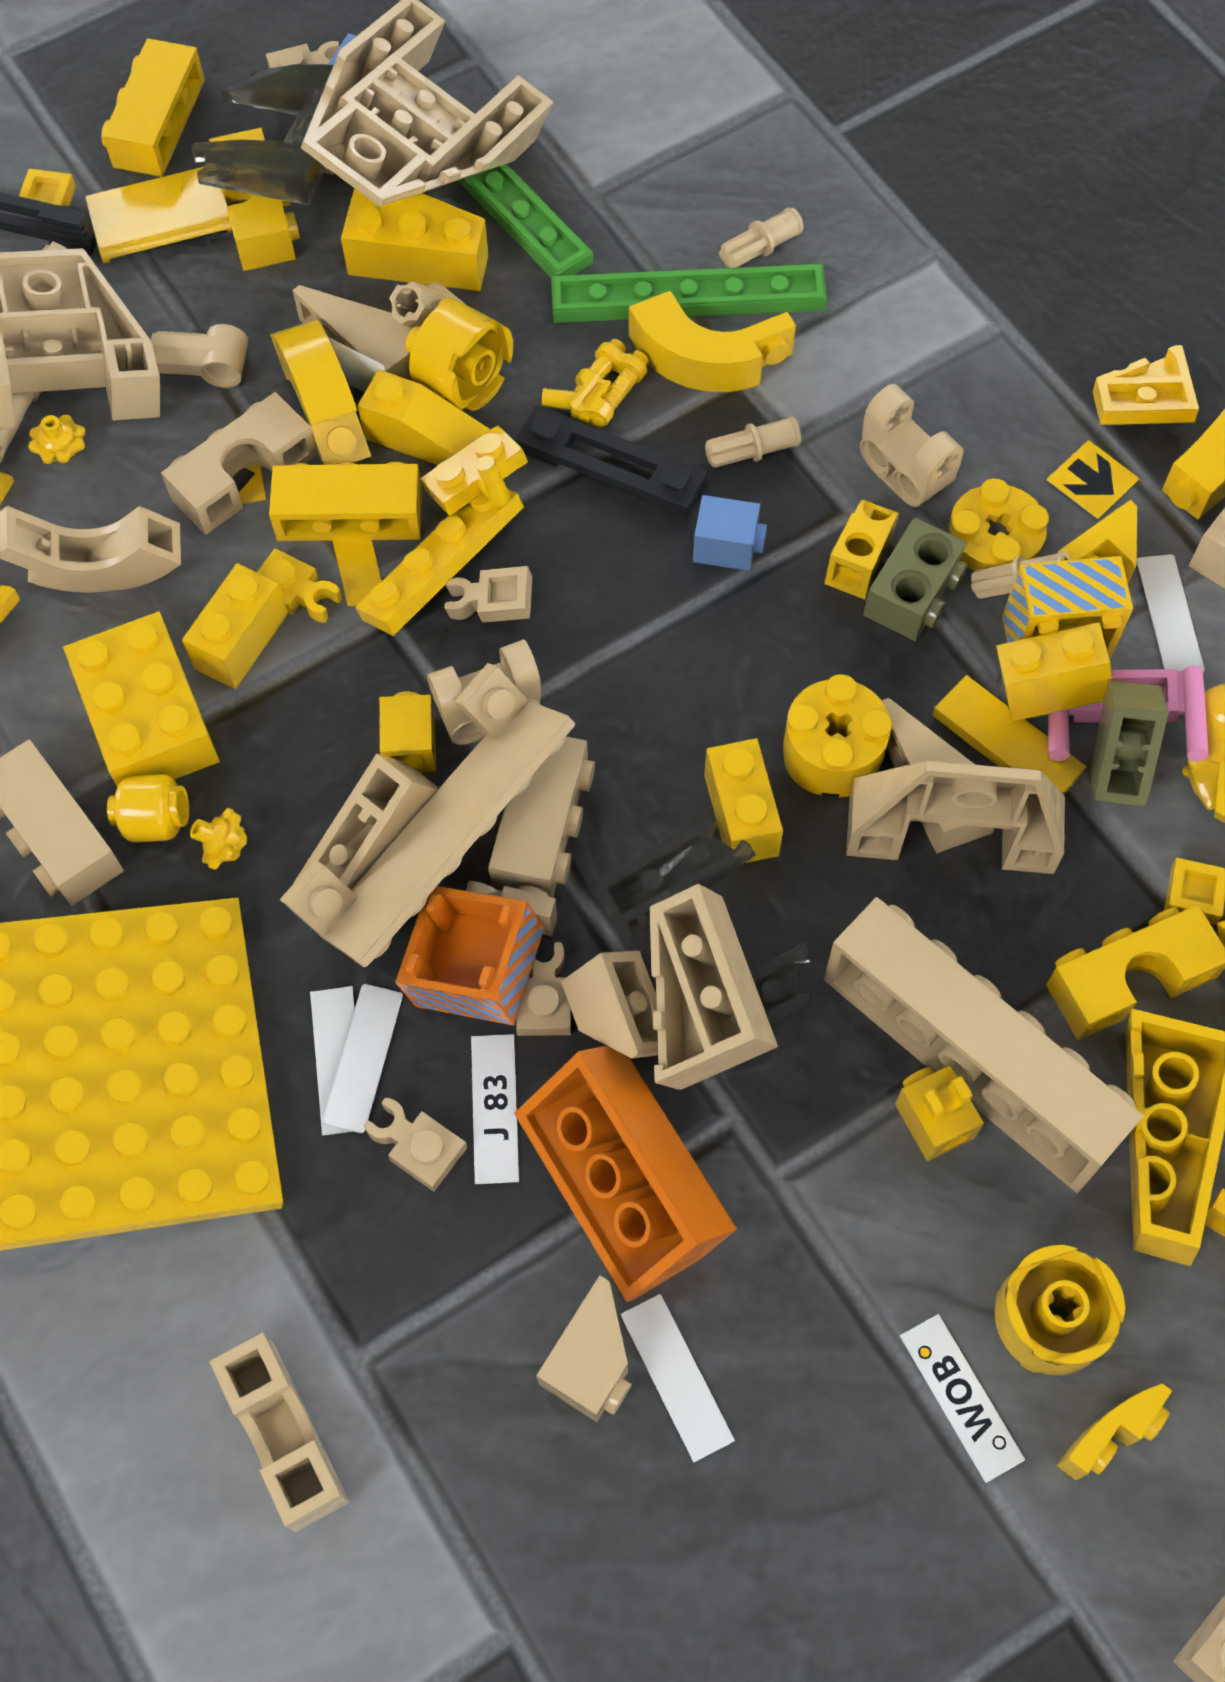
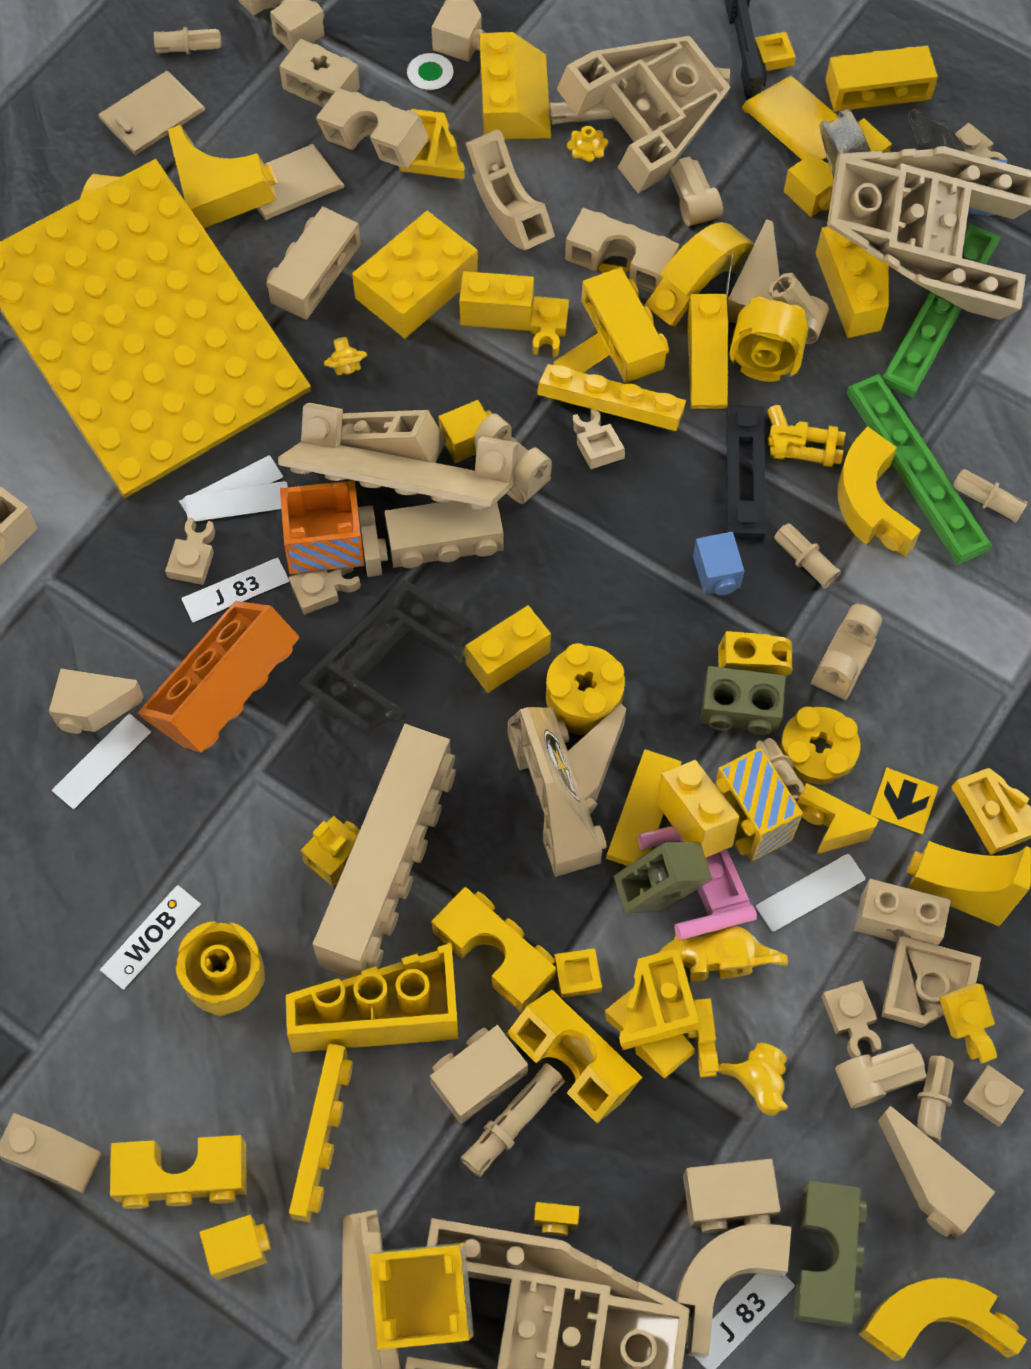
camera: 65 degrees right, 0 degrees up
(148, 808) = (346, 310): yellow head -> none
(476, 471) = (681, 386): yellow plate -> none
(615, 1002) = (321, 627): tan slope -> none
(704, 991) = (343, 660): tan wedge -> none
(1127, 1423) = (165, 1039): yellow slope -> none

